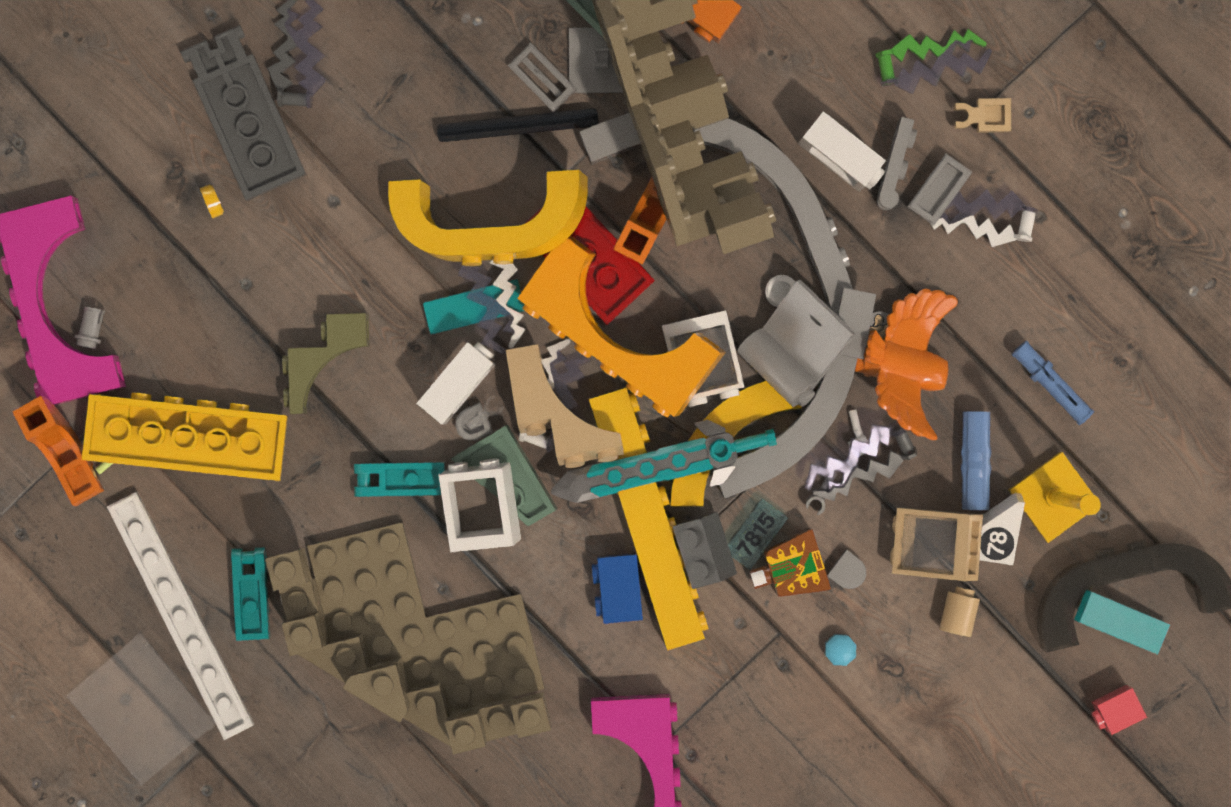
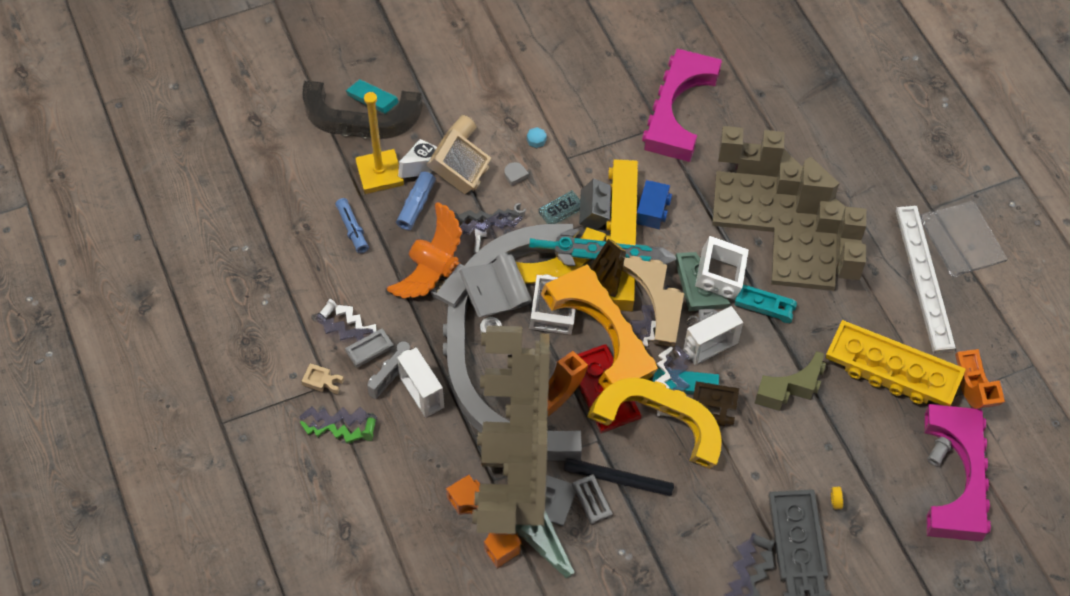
camera: 160 degrees left, 30 degrees down
(250, 595) = (878, 272): teal plate -> none
(421, 290) = (718, 397): none -> dark brown plate
(642, 430) = (609, 266): none -> dark brown wing
(793, 566) = (546, 182): torso -> none
(1117, 710) = (395, 59): coral brick -> none

